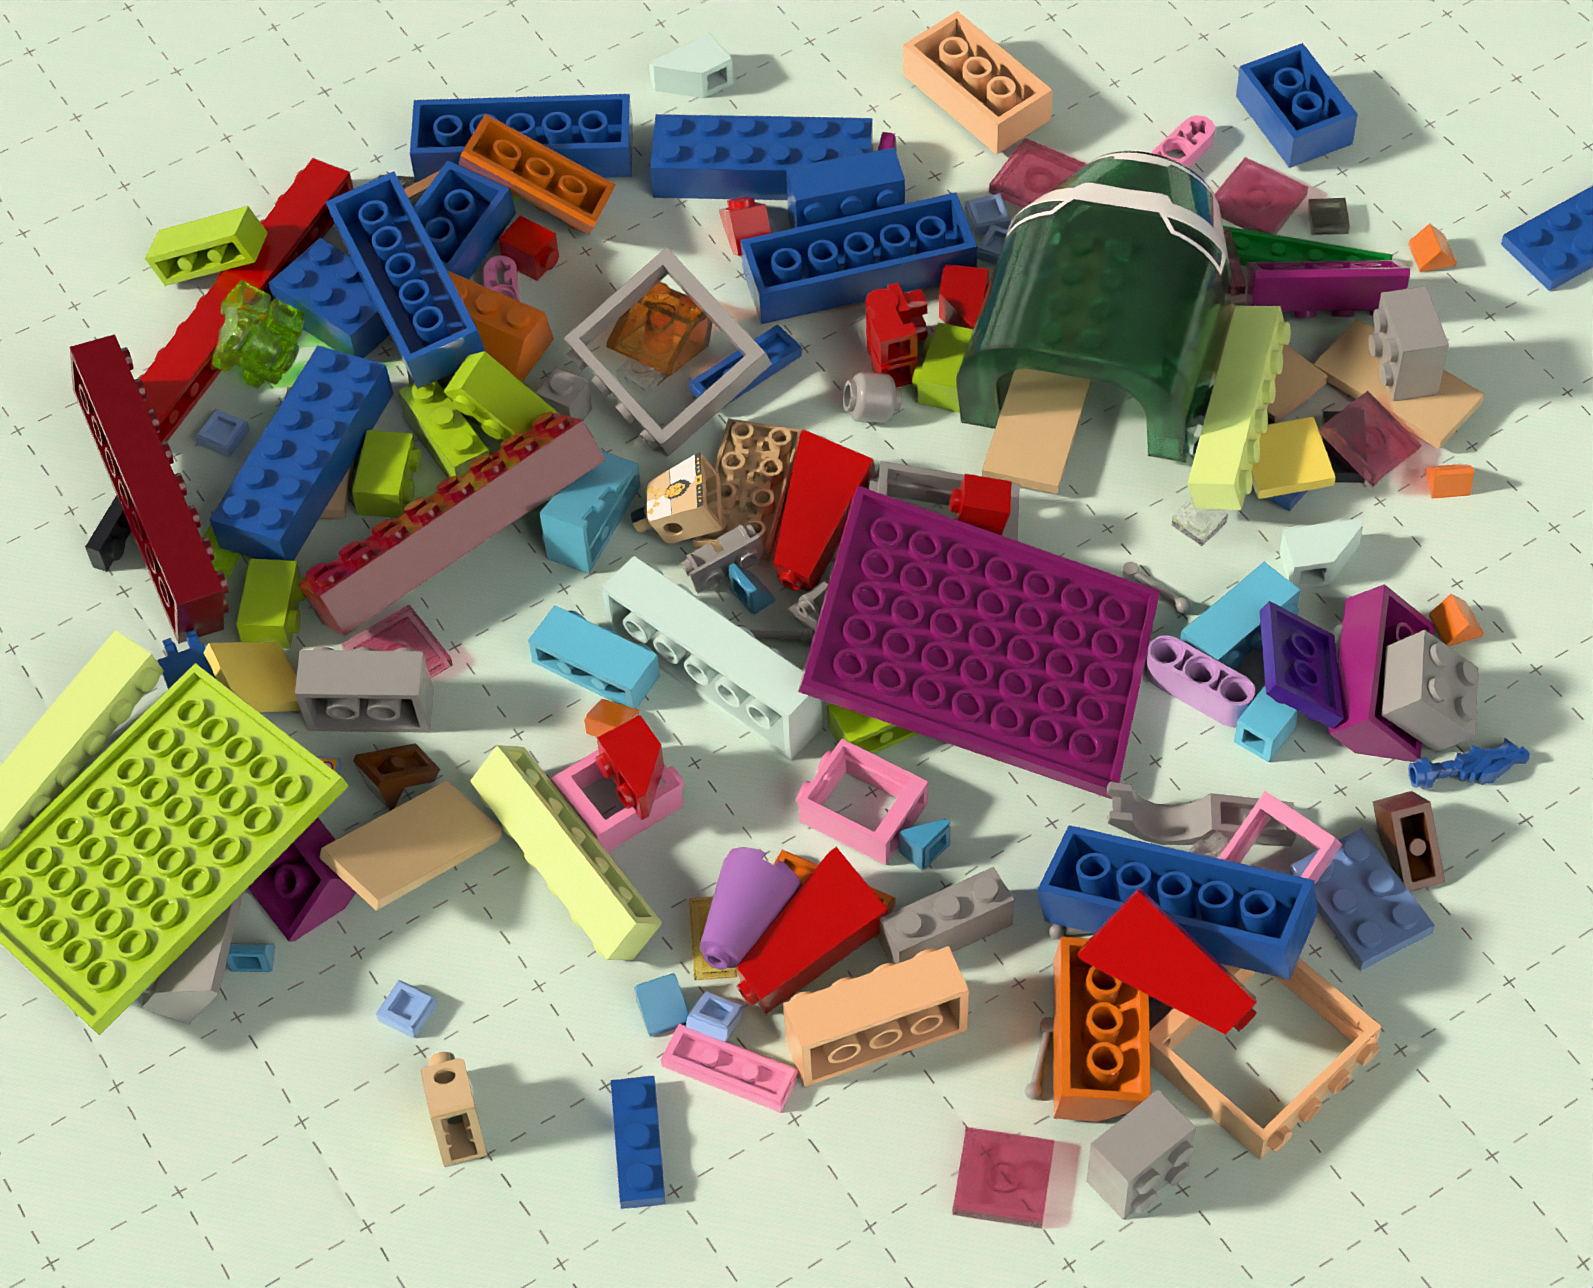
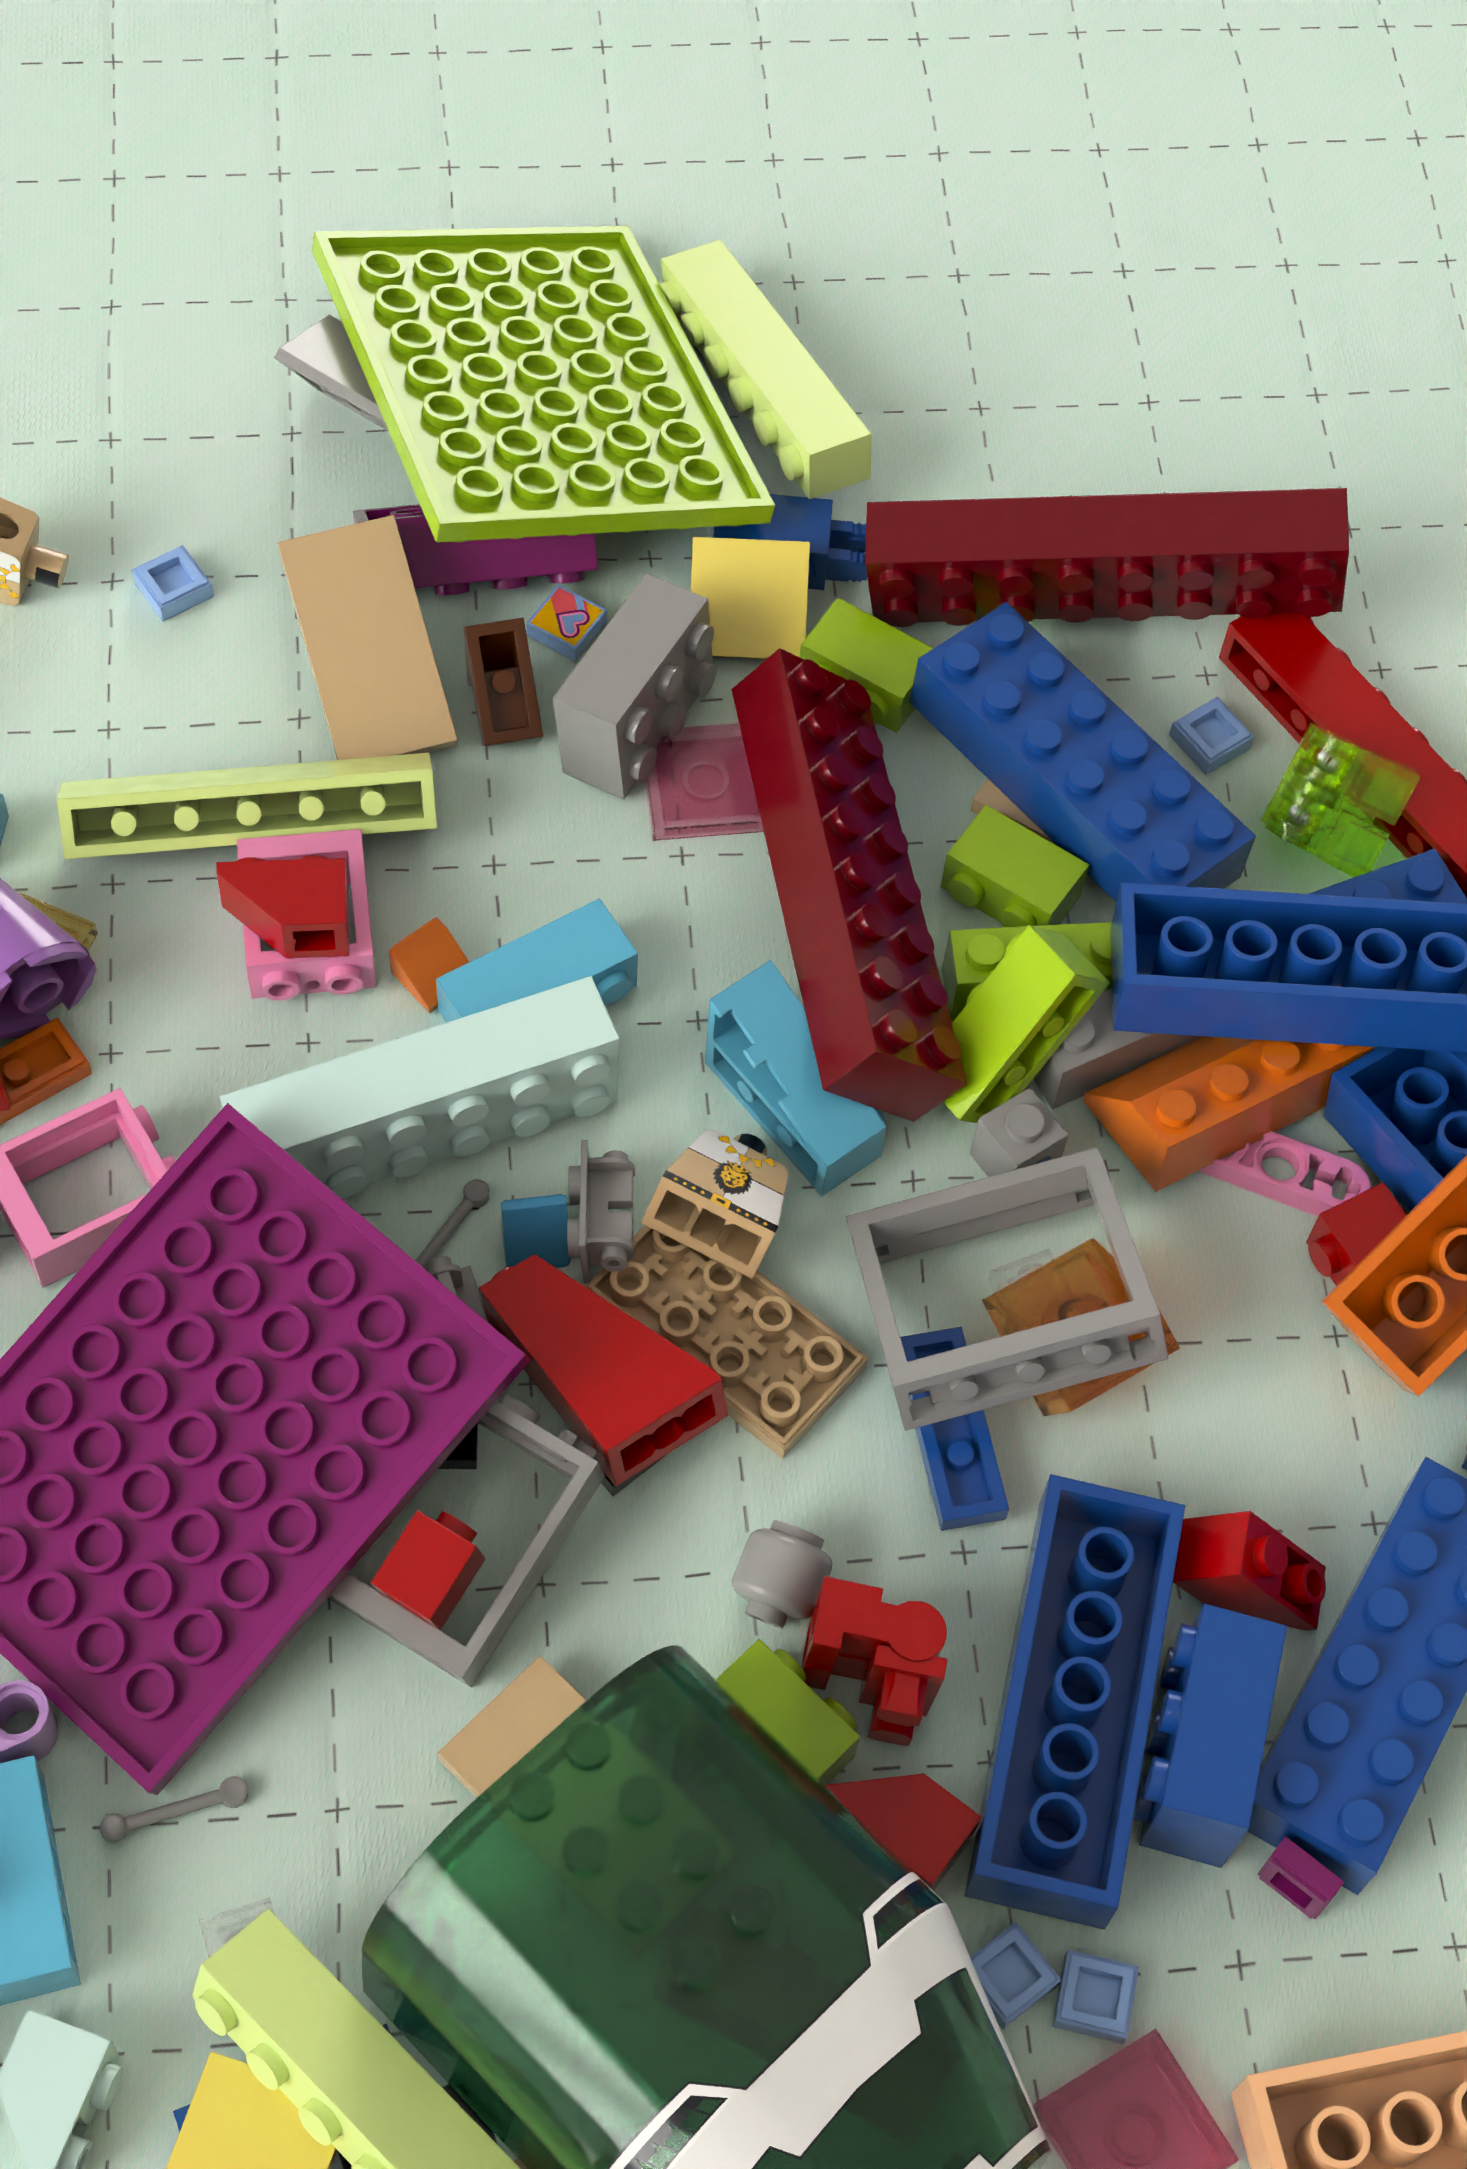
camera: 110 degrees right, 5 degrees up
(251, 957) = (356, 459): dark azure slope -> none

